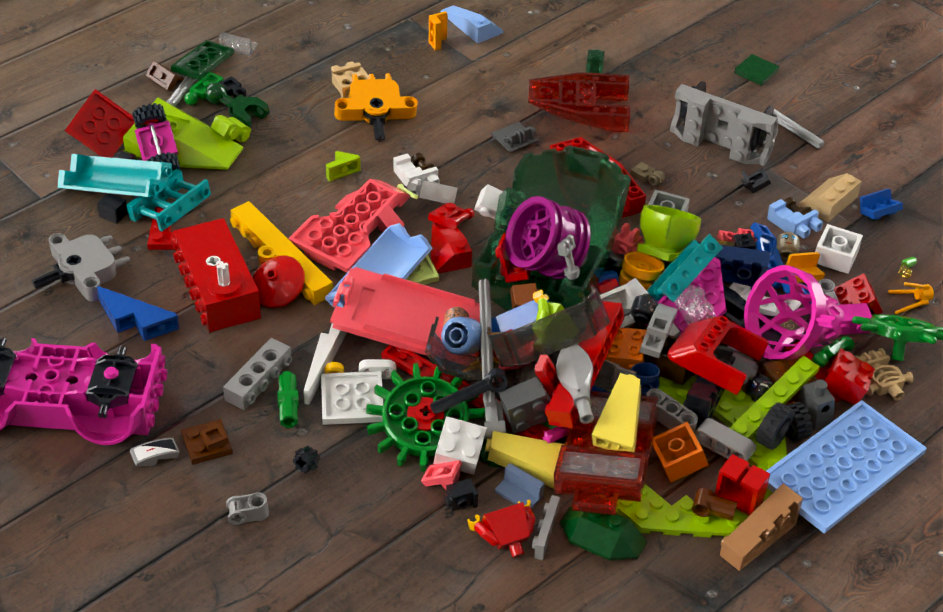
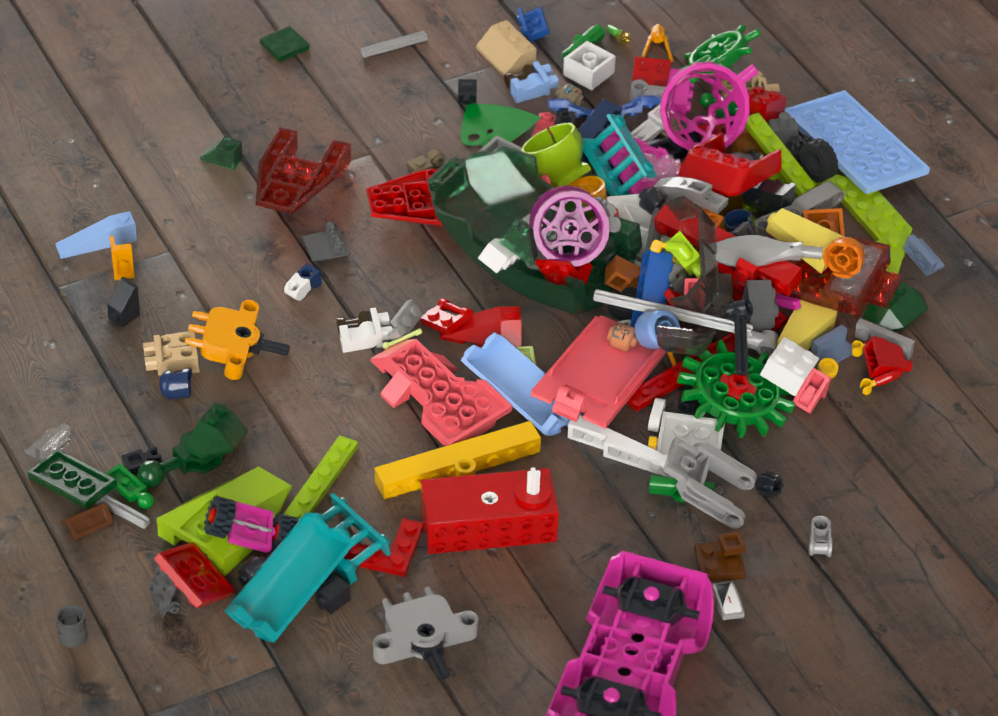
camera: 75 degrees left, 0 degrees up
(53, 86) = (71, 626): none -> dark grey wheel
(130, 313) = (518, 596): blue slope -> none
(231, 128) = (233, 465): lime brick -> none
(239, 183) = (322, 477): none -> lime plate
(257, 374) = (640, 505): light grey brick -> none
(263, 110) = (216, 433): none -> dark green wedge
(284, 285) = (499, 451): red dish -> none
(287, 384) = (691, 467): none -> light grey plate
(315, 84) = (176, 384): none -> dark blue helmet
(343, 165) = (327, 385): lime slope -> none
(391, 44) = (124, 303): none -> black slope
(459, 129) = (303, 282): none -> leg
(461, 495) = (838, 386): black brick -> none
(489, 488) = (828, 367): none -> yellow tile
(600, 443) = (844, 257): none -> orange cylinder
(692, 546) = (922, 255): none -> sand blue panel
(707, 503) = (888, 228): reddish brown piece -> none
(724, 124) = (405, 73): light grey piece -> none
(731, 207) = (504, 120): none -> green piece
(742, 484) = (880, 199): red piece -> none
(762, 527) = (916, 206): medium nougat wedge -> none
(806, 262) = (610, 93): light orange panel -> none
(875, 244) = (593, 35): none -> green piece

